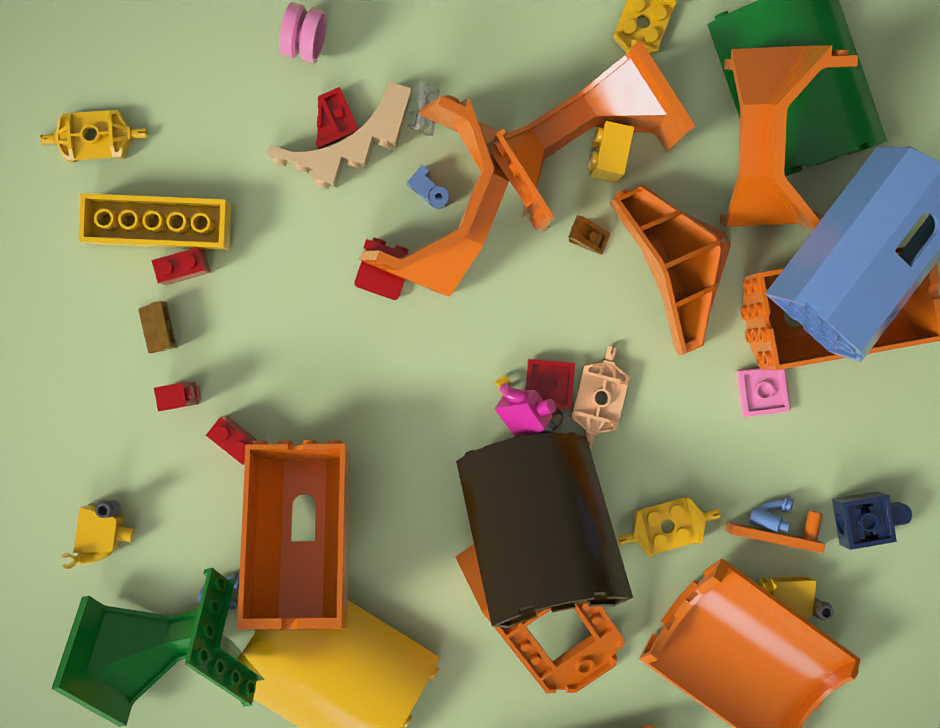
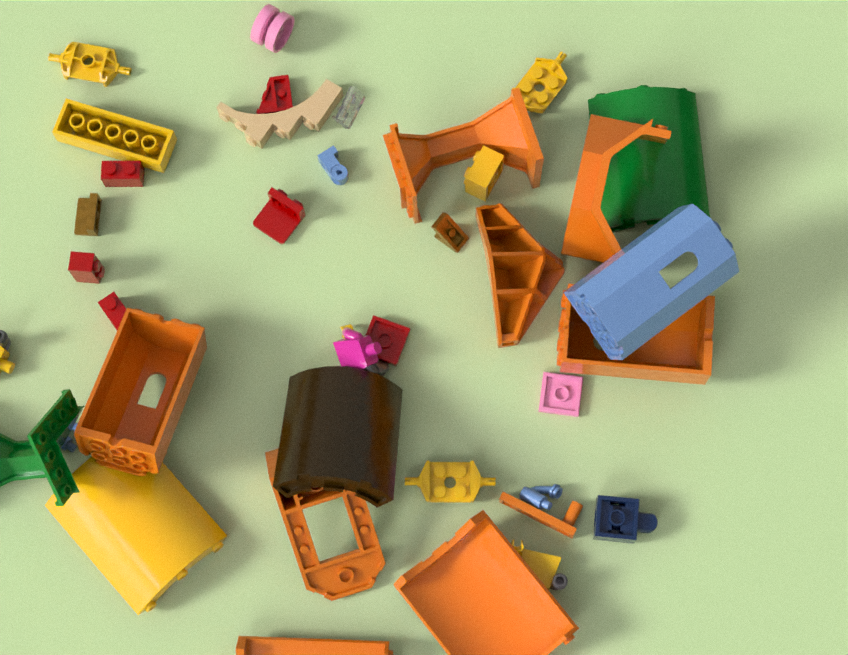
camera: 20 degrees right, 15 degrees down
(446, 261) = (324, 211): orange panel -> none
(596, 378) = (421, 378): light nougat plate -> none

